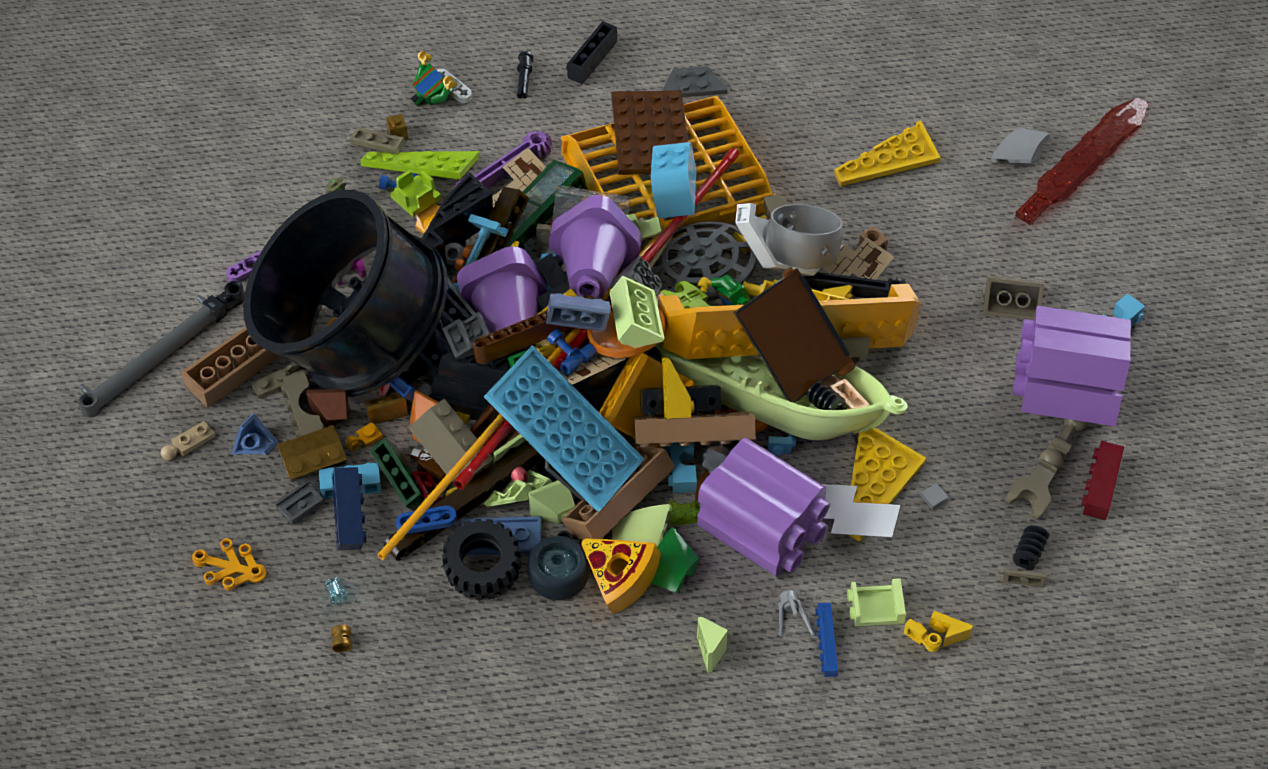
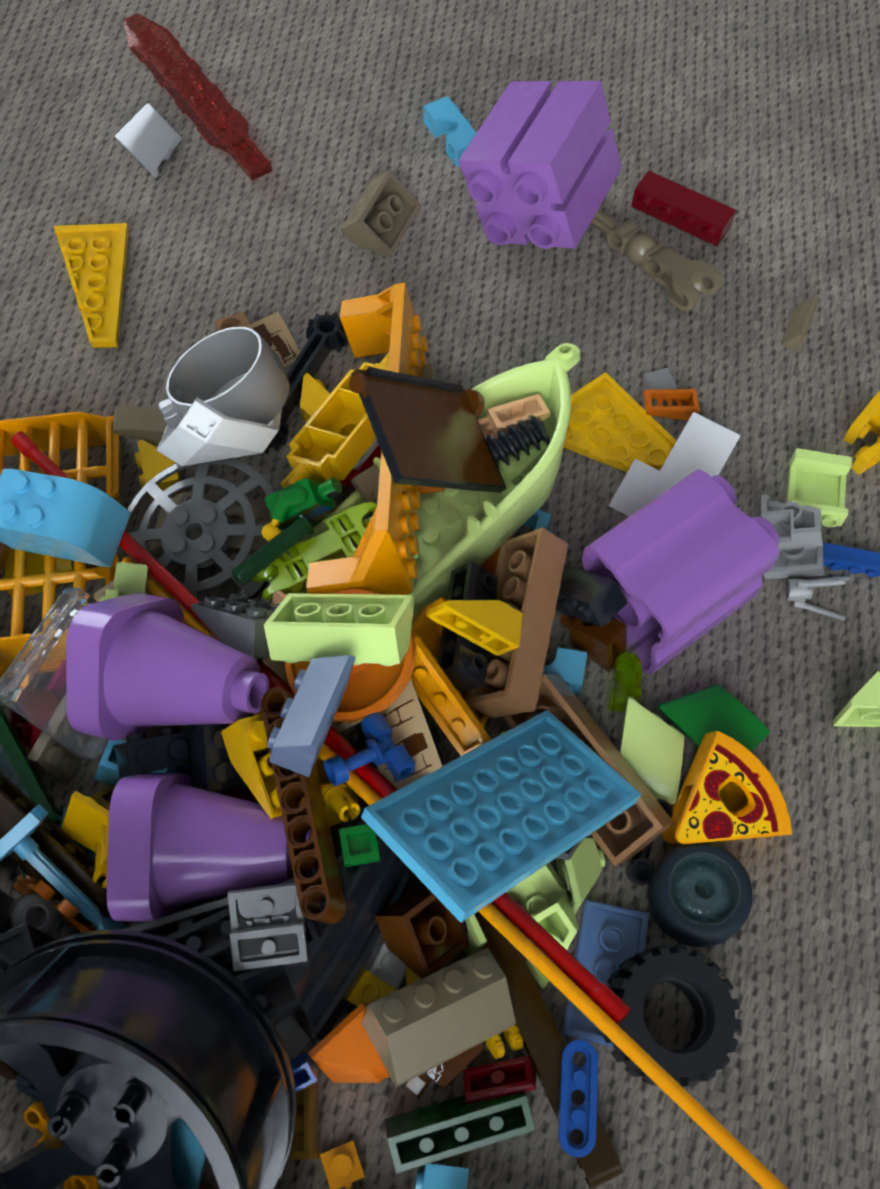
camera: 75 degrees left, 10 degrees up
(691, 286) = (272, 550): none -> dark green axle
(825, 589) = (799, 539): none -> light grey slope
(917, 514) = (678, 396): none -> orange slope
(1030, 547) = (762, 304): black piece -> none

